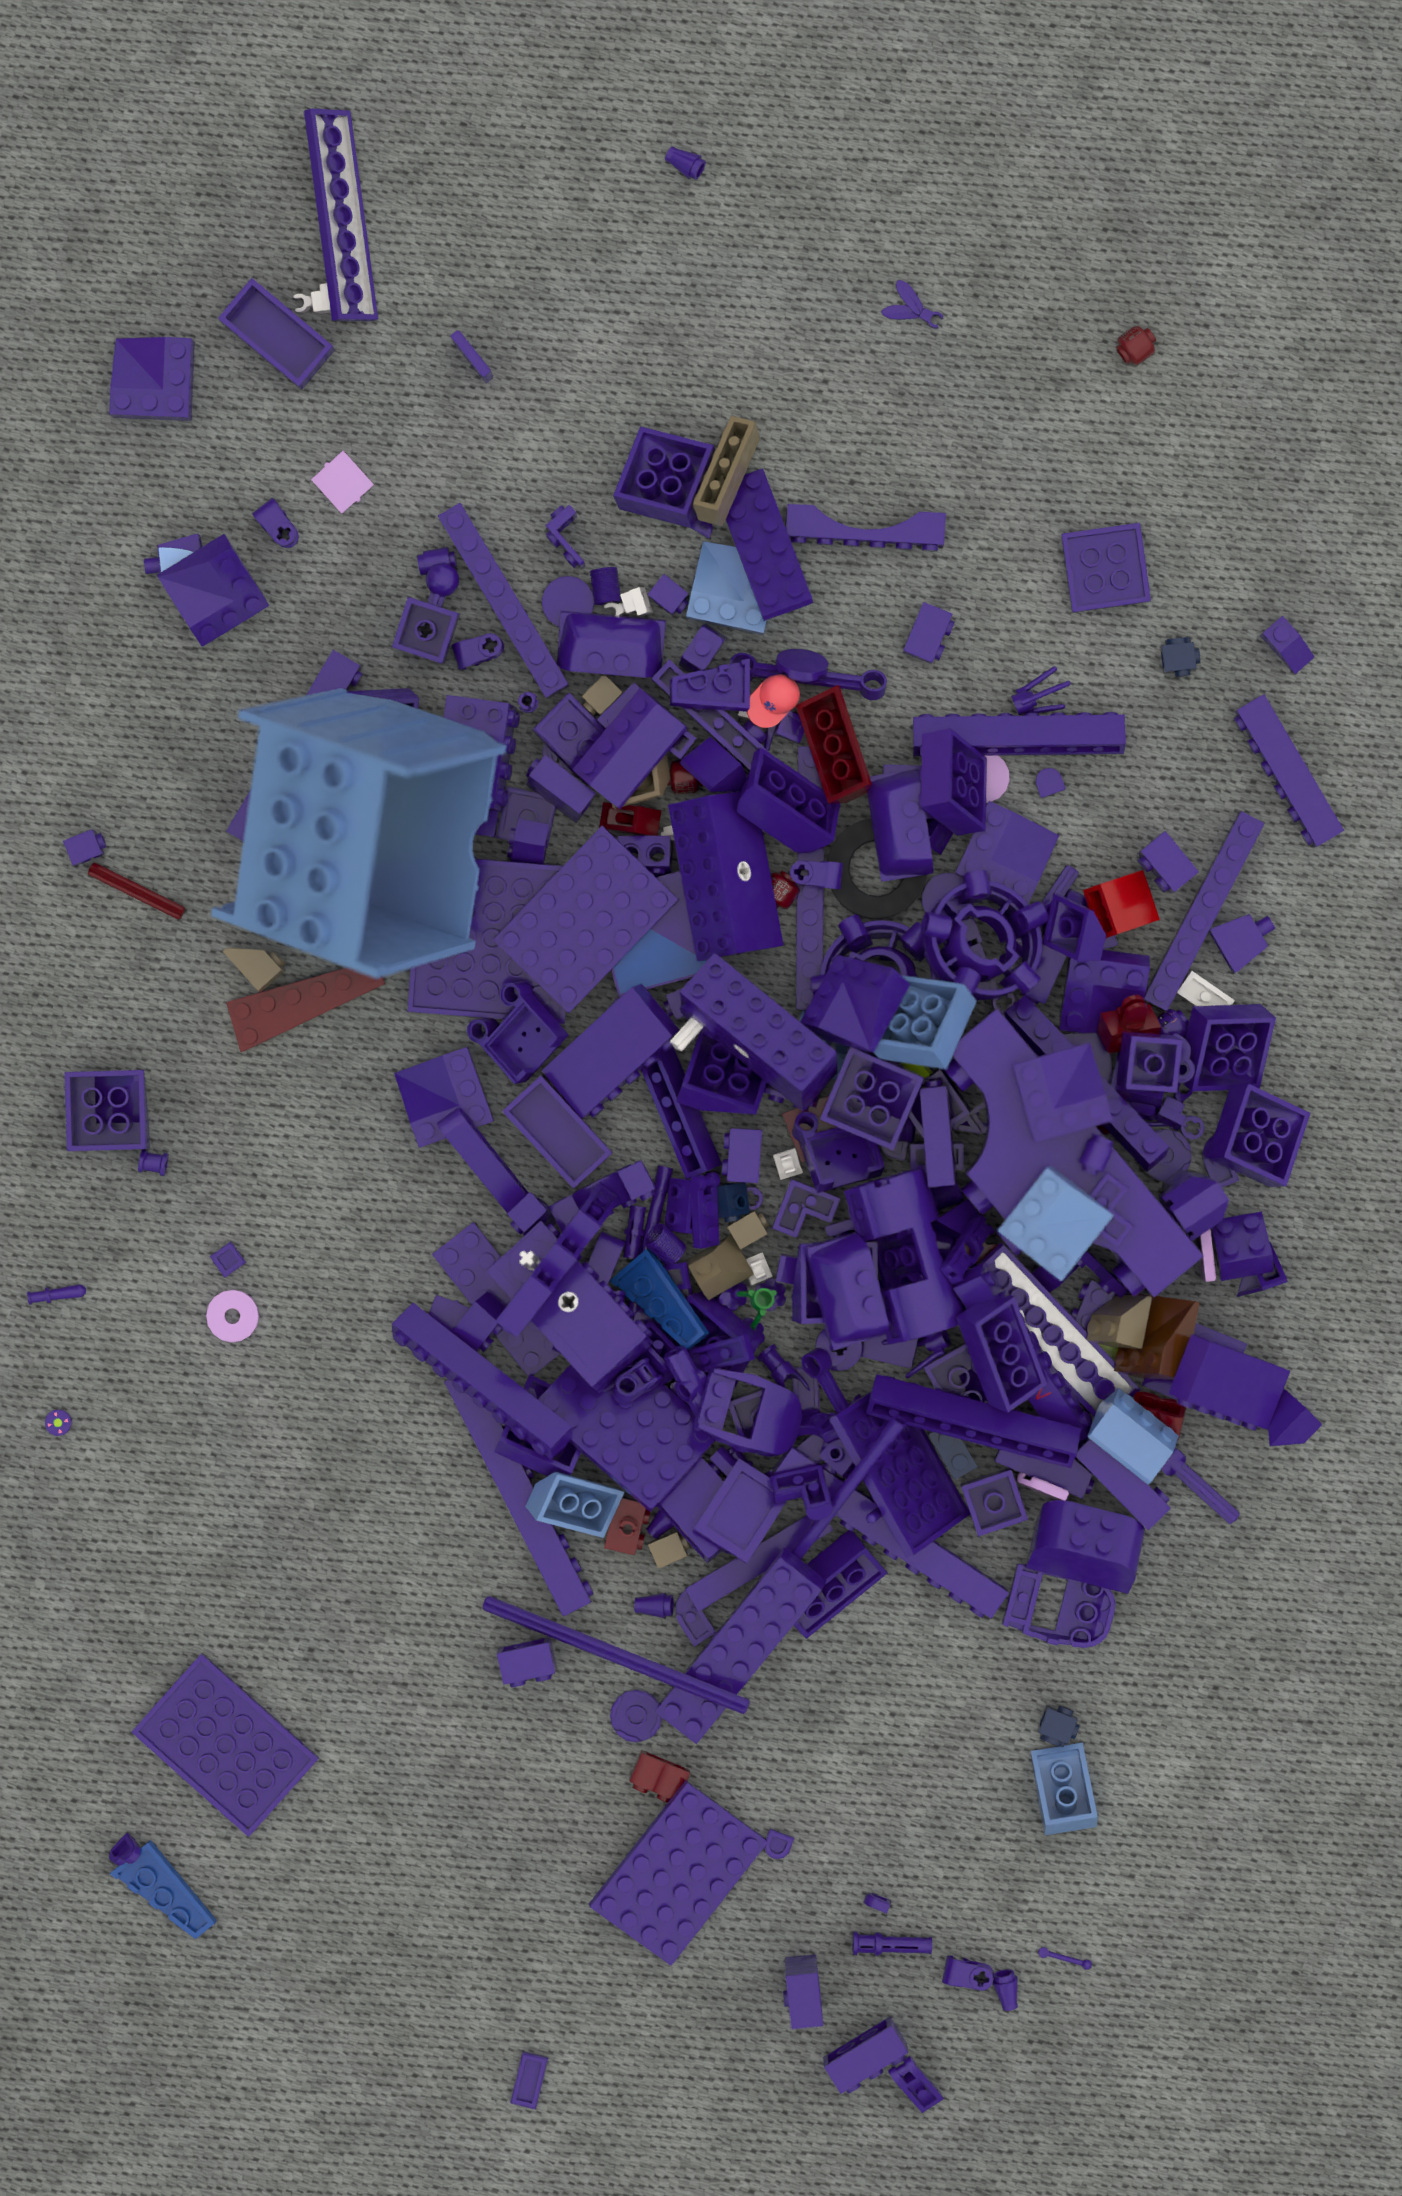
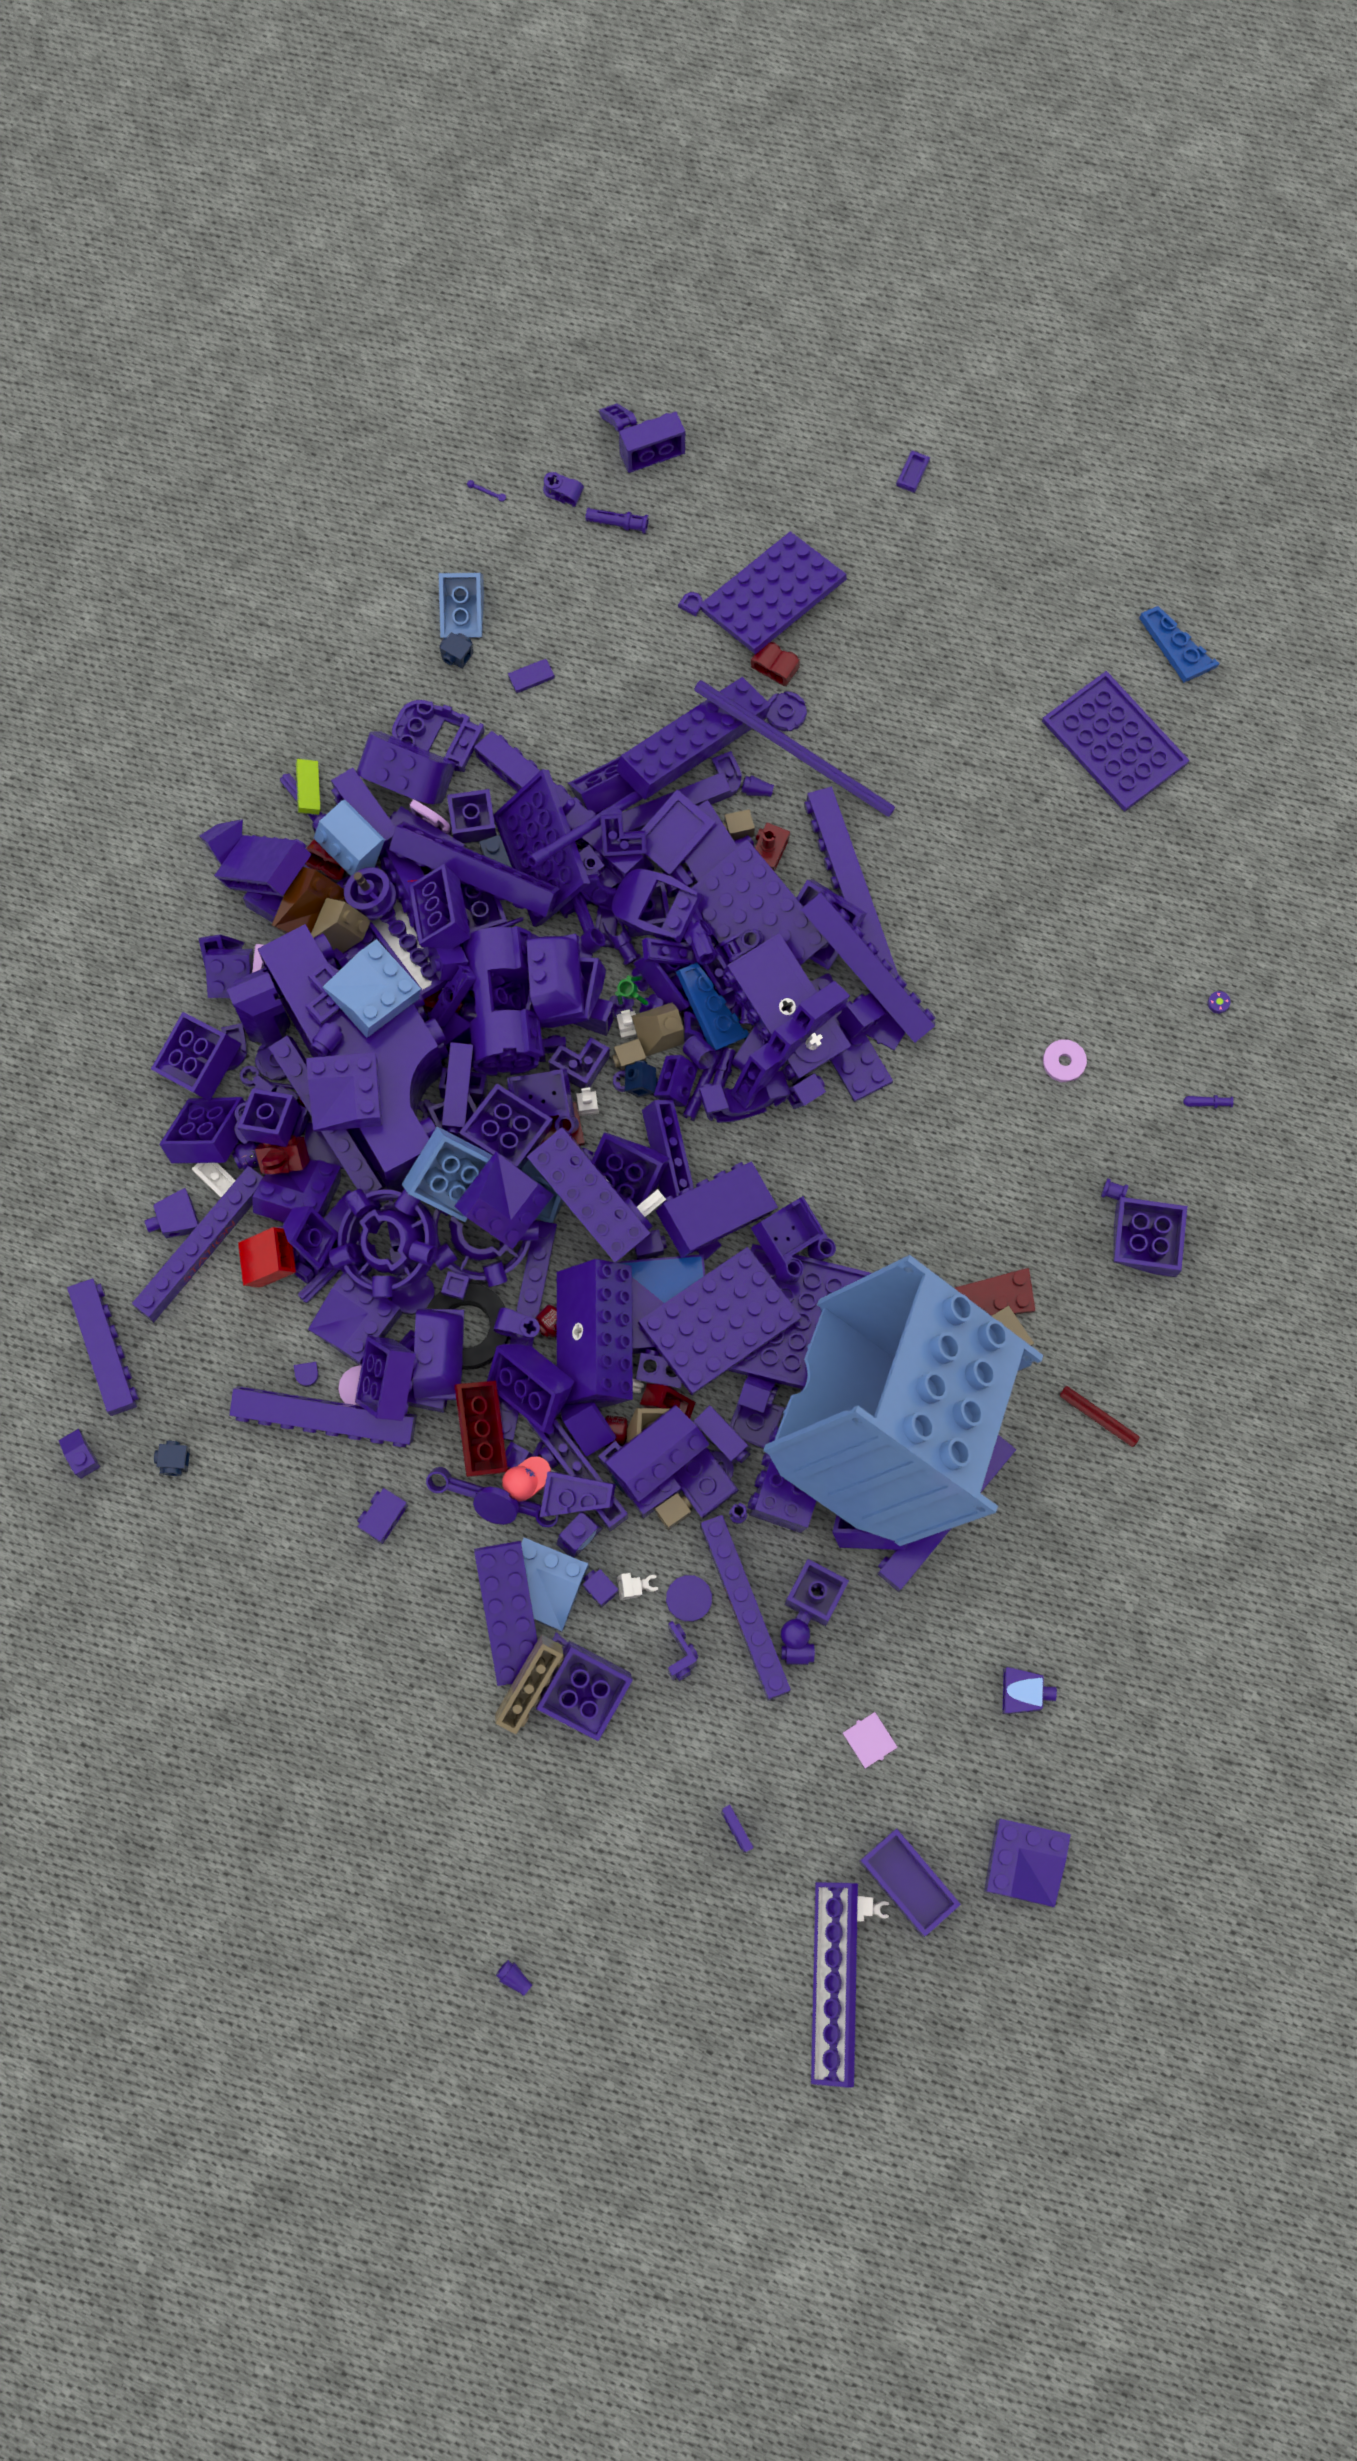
camera: 170 degrees left, 15 degrees down
(84, 847) = (1139, 1458): dark purple brick -> none
(125, 1851) = (1204, 676): dark purple tile -> none
(213, 590) = (998, 1658): dark purple slope -> none
(228, 1259) = (1062, 1105): dark purple tile -> none
(275, 520) = (935, 1715): dark purple piece -> none
(437, 1089) = (863, 1201): dark purple slope -> none
(473, 650) = (778, 1569): dark purple piece -> none
(482, 1159) = (837, 1140): dark purple beam -> none
(527, 1661) = (866, 757): dark purple brick -> none
(557, 1131) = (773, 1155): dark purple piece -> none
(574, 1503) = (810, 862): medium blue slope -> none
(605, 585) = (653, 1605): dark purple piece -> none
(610, 644) = (658, 1551): dark purple windscreen -> none
(705, 1210) = (661, 1071): dark purple plate -> none
(743, 1156) = (621, 1110): dark purple brick -> none
(803, 1991) = (691, 484): dark purple brick -> none
(877, 1902) = (621, 548): dark purple tile -> none
(895, 906) = (455, 1285): none -> dark purple tile
(913, 307) = (337, 1806): dark purple piece -> none
(922, 529) = (370, 1606): dark purple arch -> none
(959, 1708) = (531, 675): none -> dark purple tile
(1006, 1988) = (535, 475): dark purple cone -> none
(1025, 701) = (310, 1442): dark purple plant -> none
(1092, 1369) = (370, 893): none -> dark purple wheel
(1106, 567) = (218, 1546): dark purple plate -> none
(1136, 345) = (147, 1737): dark red head -> none
(1167, 863) = (218, 1281): dark purple brick -> none
(1202, 1507) = (307, 786): none -> lime tile

